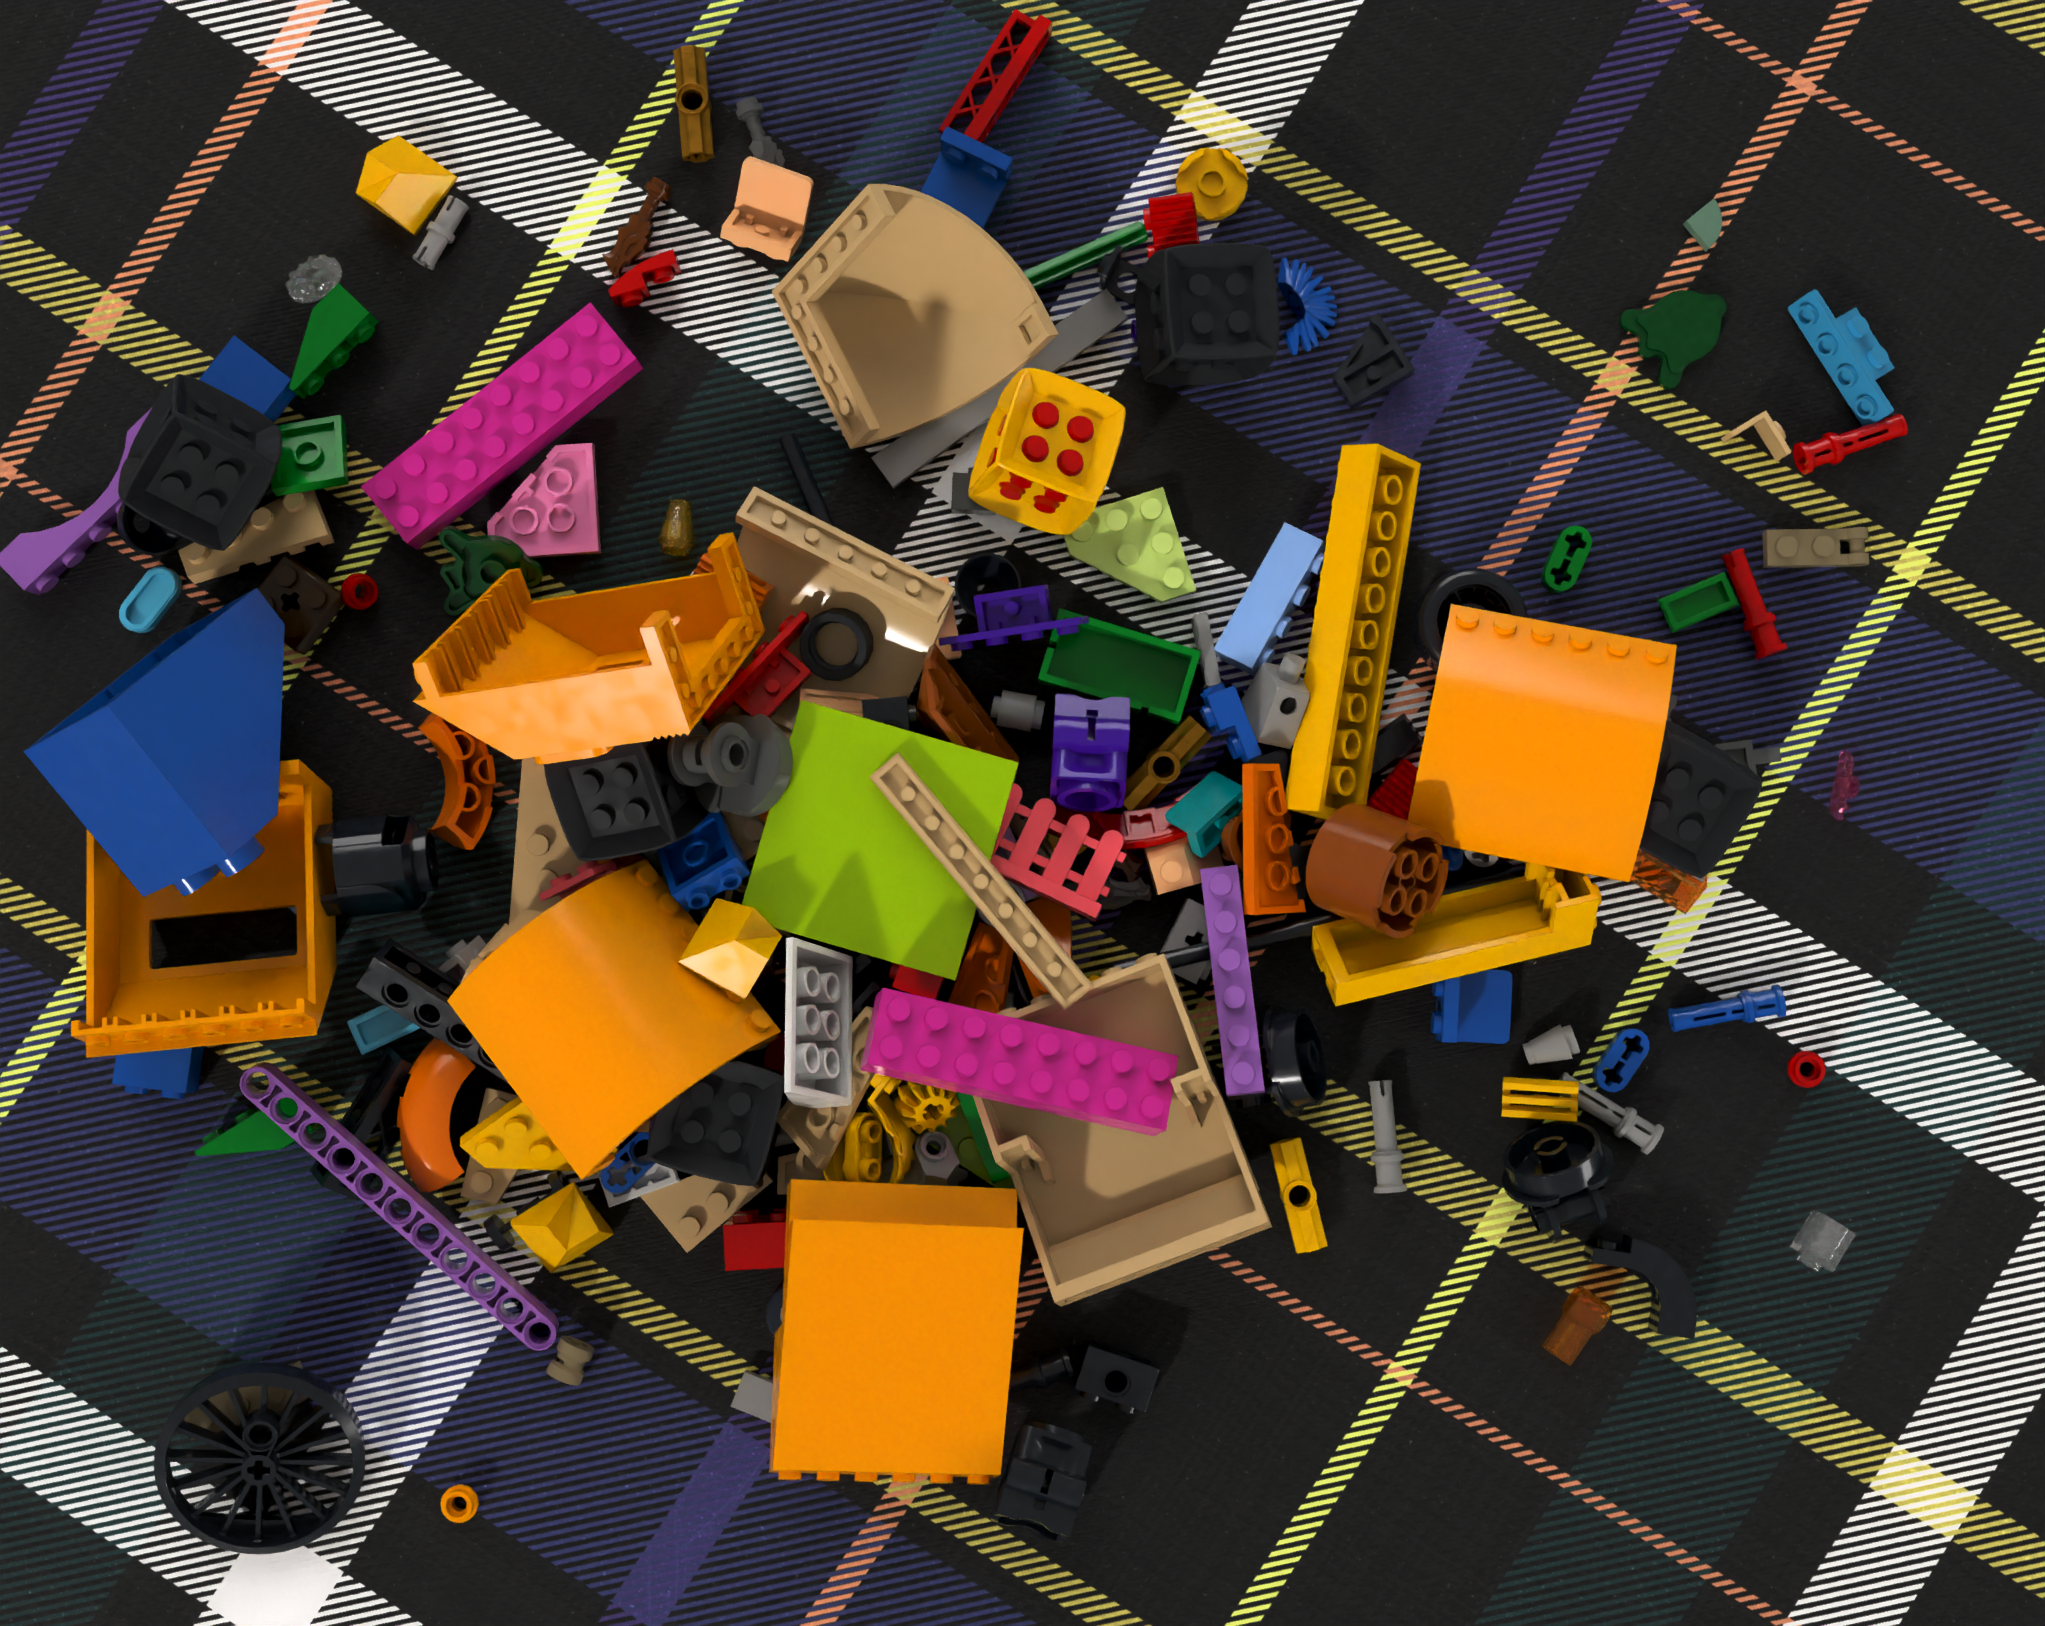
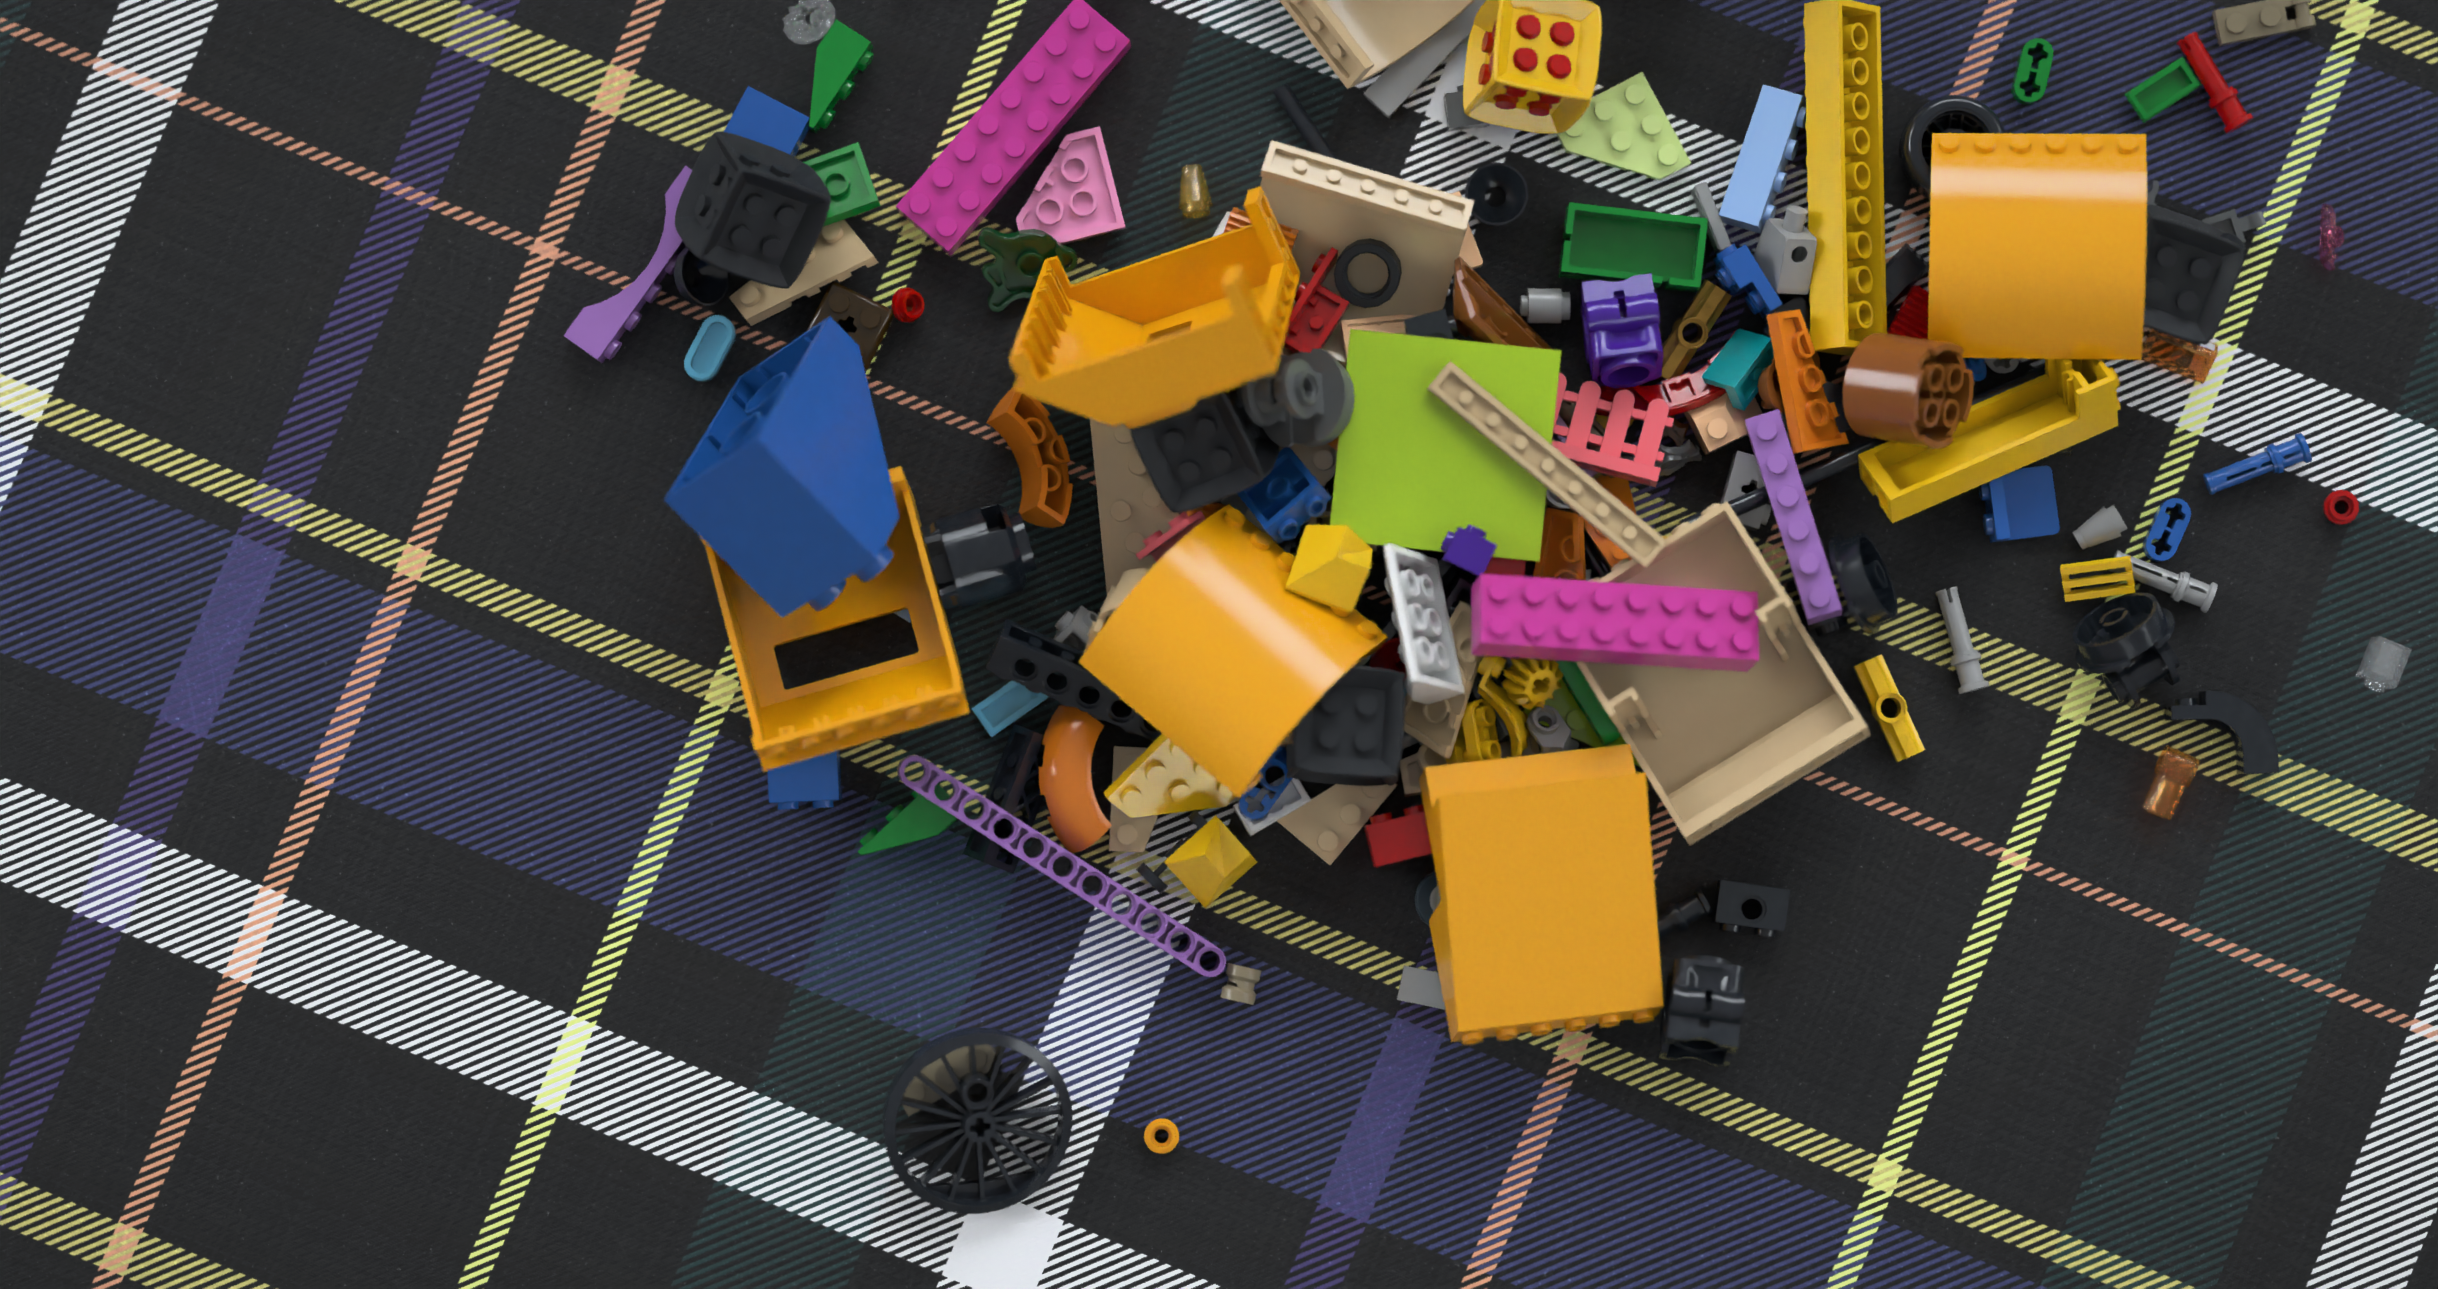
camera: 10 degrees left, 0 degrees up
(880, 956) = (1468, 549): none -> dark purple brick
(1011, 613) = (1528, 214): dark purple bracket -> none

